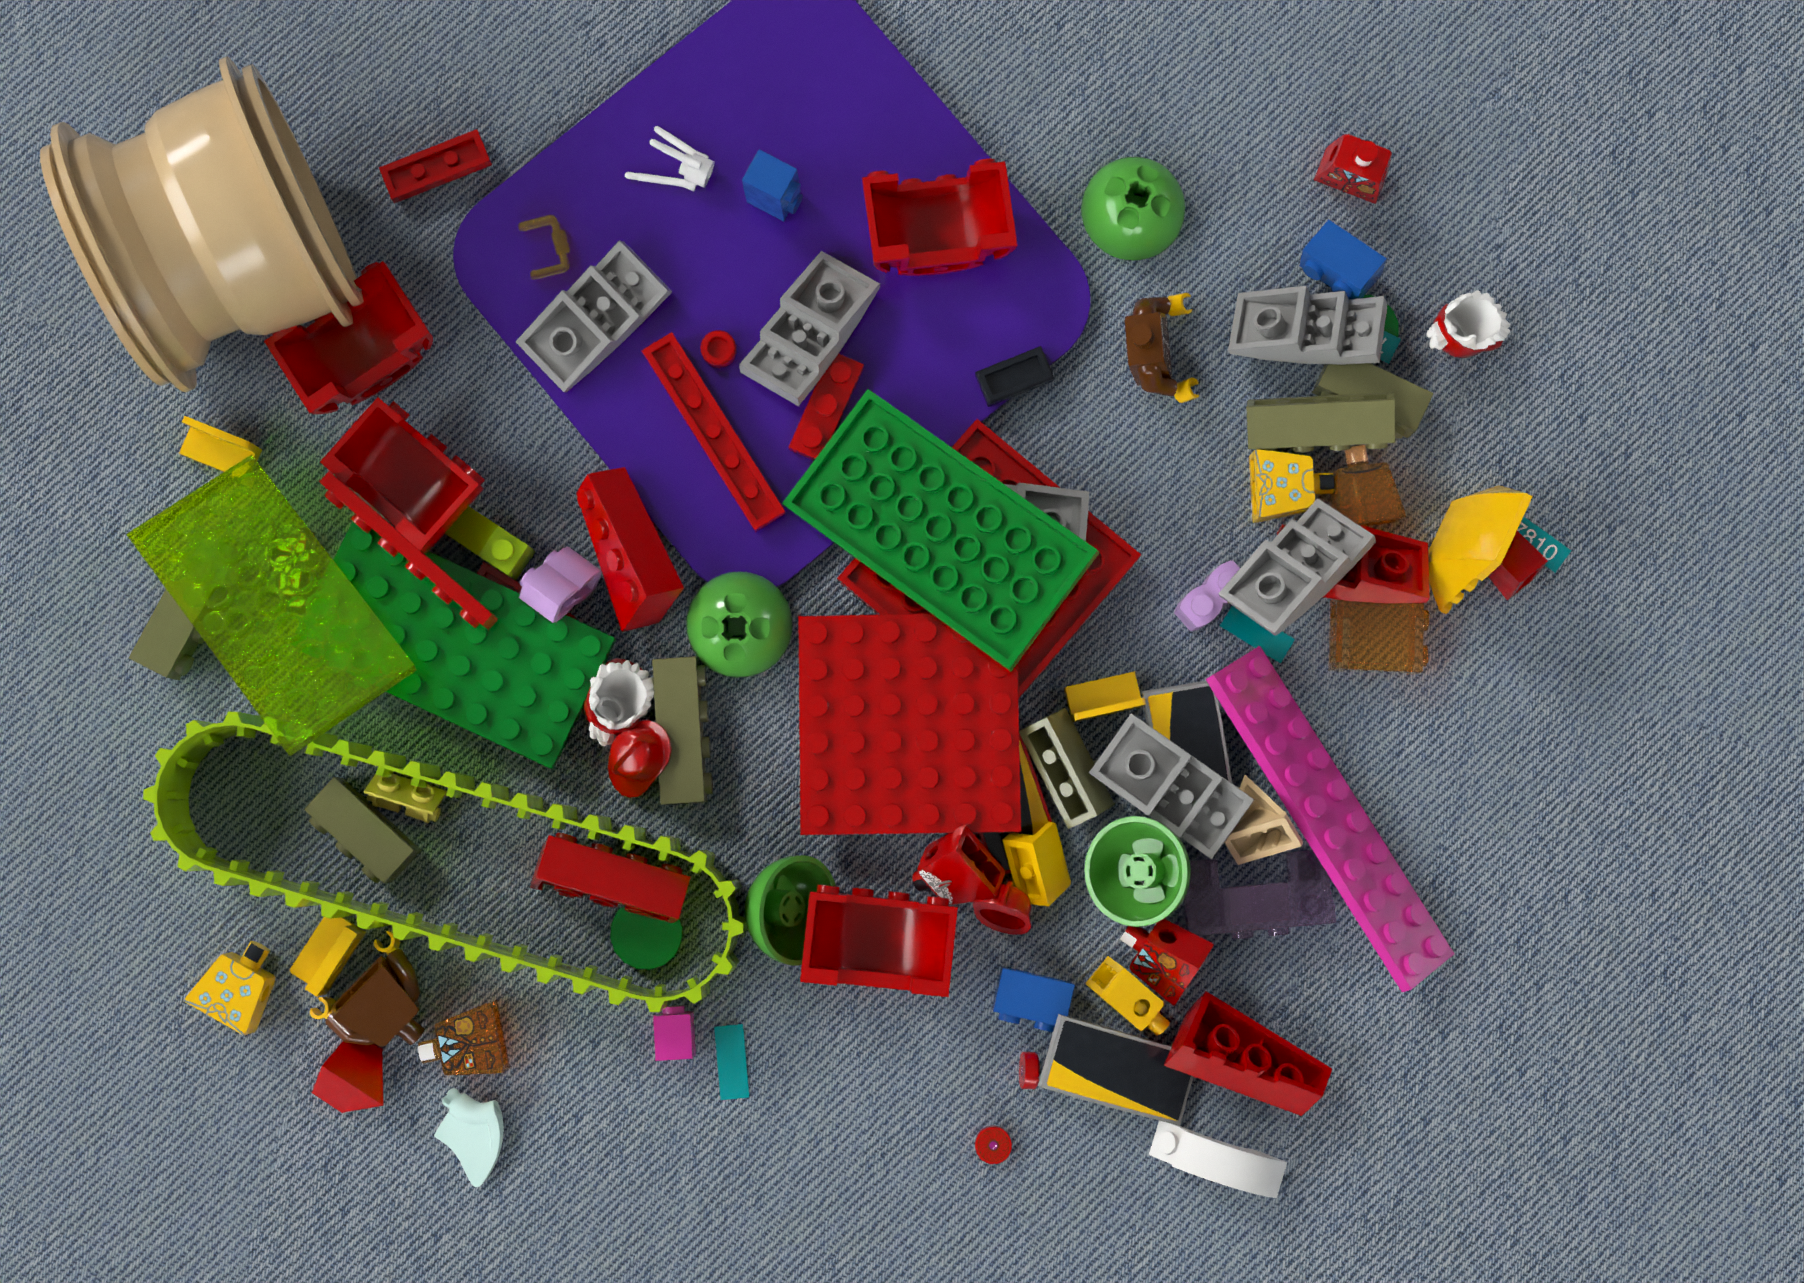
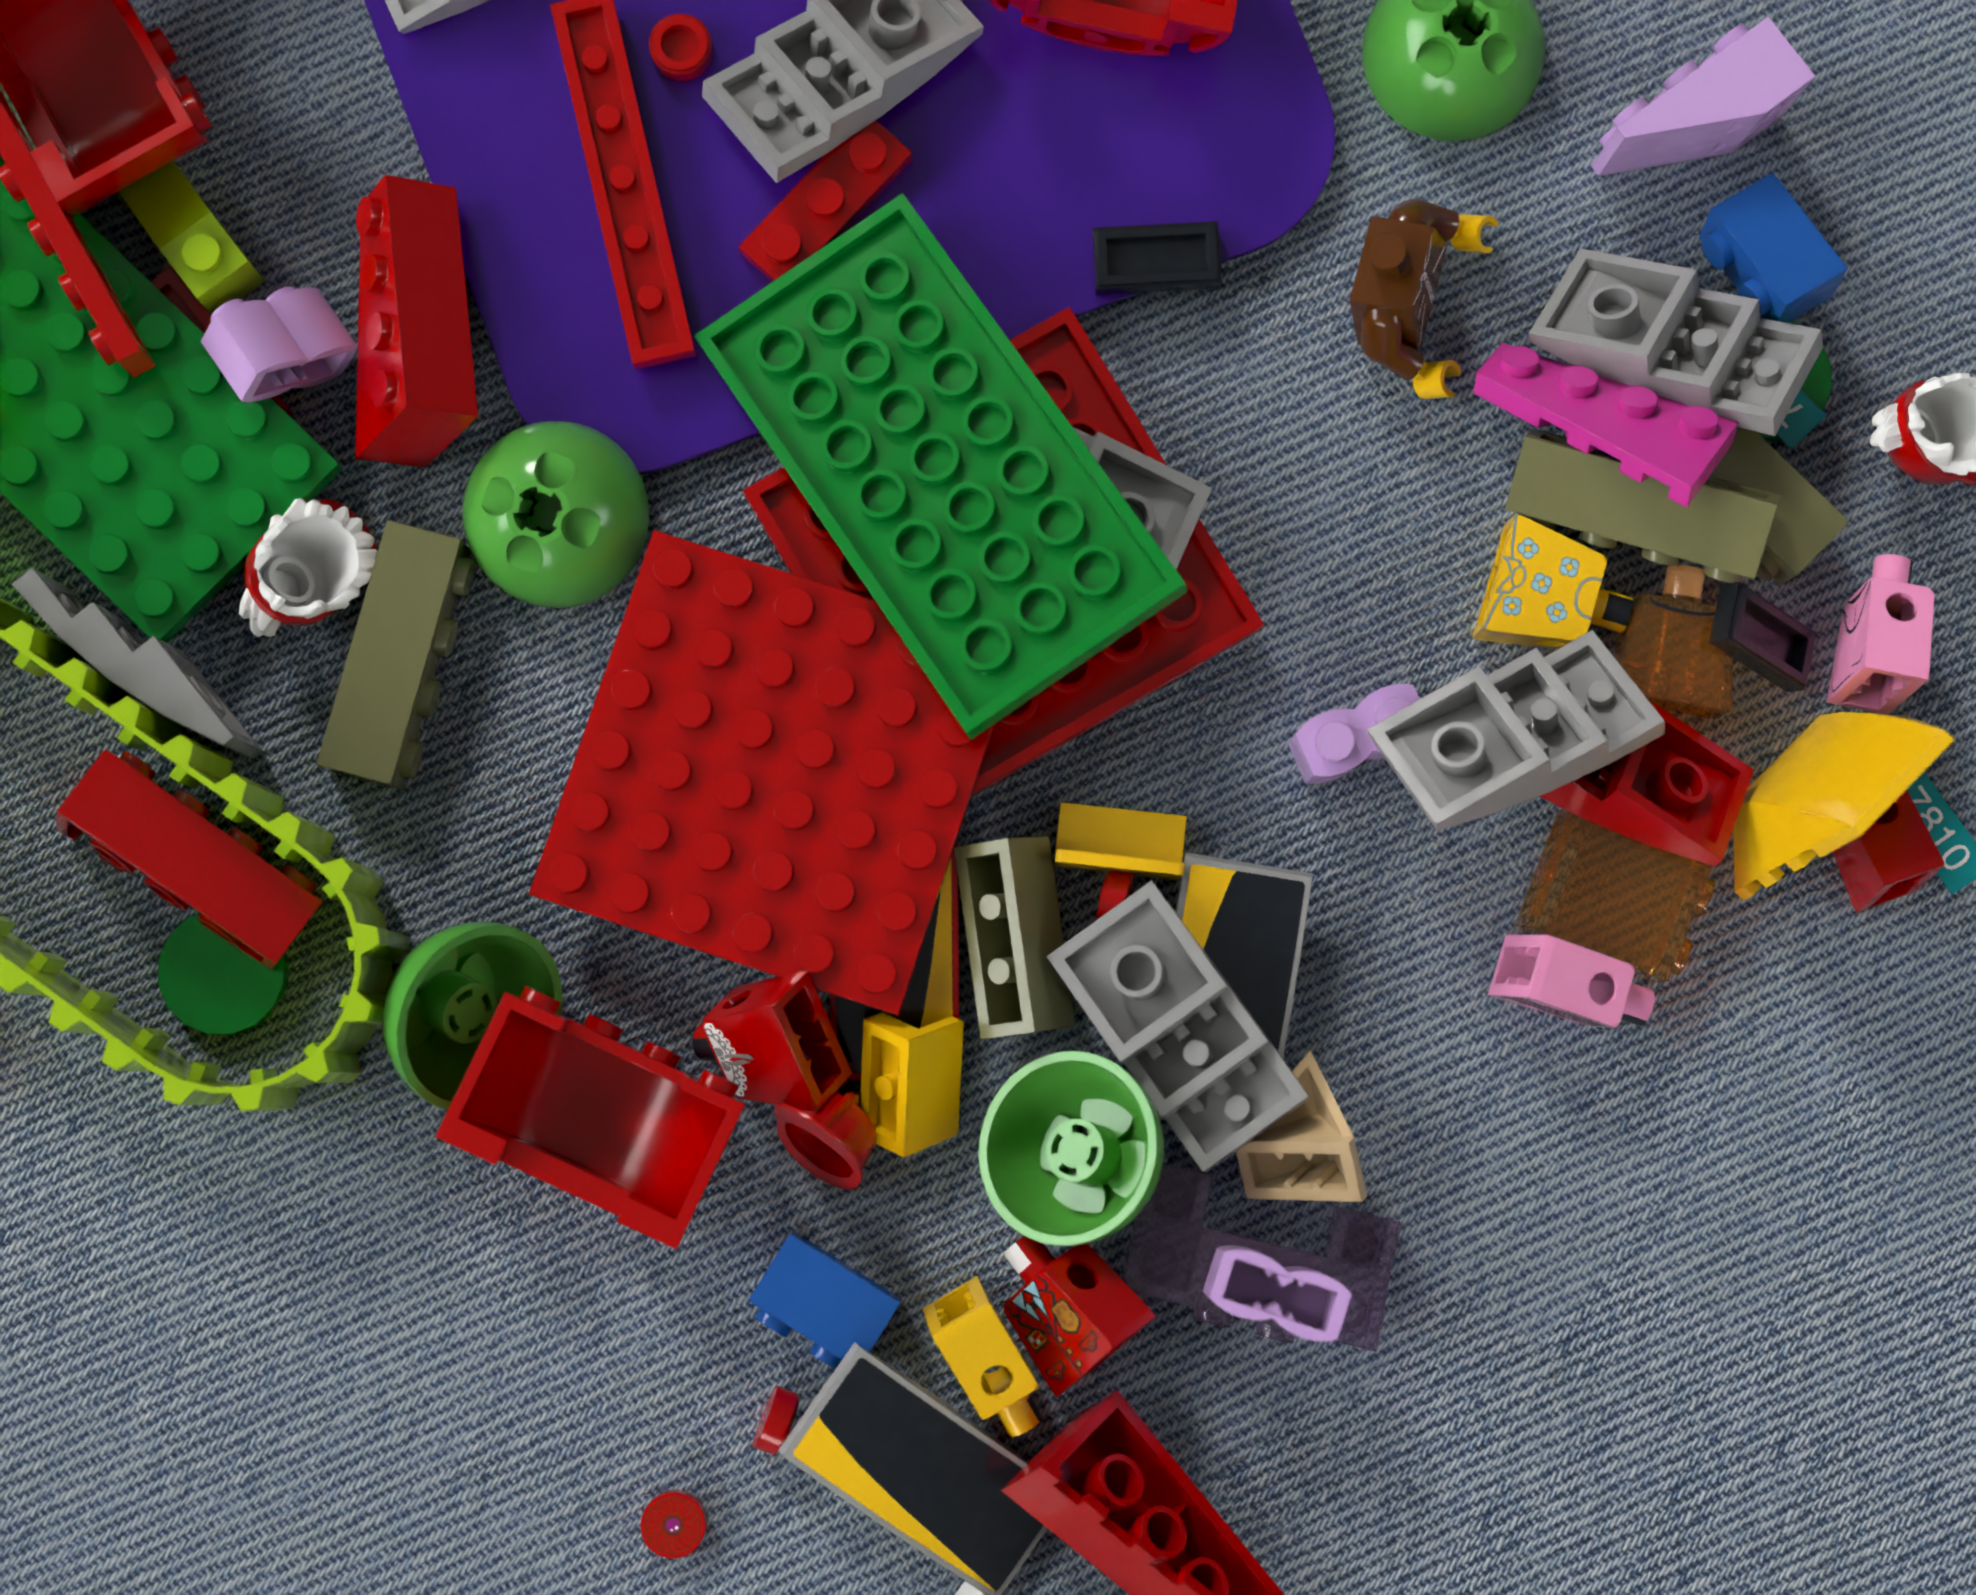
camera: 15 degrees right, 0 degrees up
(556, 786) = (147, 670): none -> light grey slope
(638, 758) = (308, 674): red piece -> none
(674, 1034) = (207, 1155): dark pink brick -> none
(731, 1062) = (289, 1235): teal sticker -> none
(1111, 726) = (1115, 889): none -> red tile
(1256, 635) = (1434, 851): teal sticker -> none
(1268, 910) = (1291, 1296): none -> lavender brick
(1282, 193) = (1709, 105): none -> lavender slope
(1297, 381) = (1628, 422): none -> dark pink wing
(1331, 818) = (1429, 1175): dark pink plate -> none
(1355, 167) = (1853, 104): red torso -> none
(1369, 690) = (1569, 982): none -> bright pink torso
(1408, 470) = (1762, 637): none -> black tile
(1473, 450) = (1883, 640): none -> bright pink torso

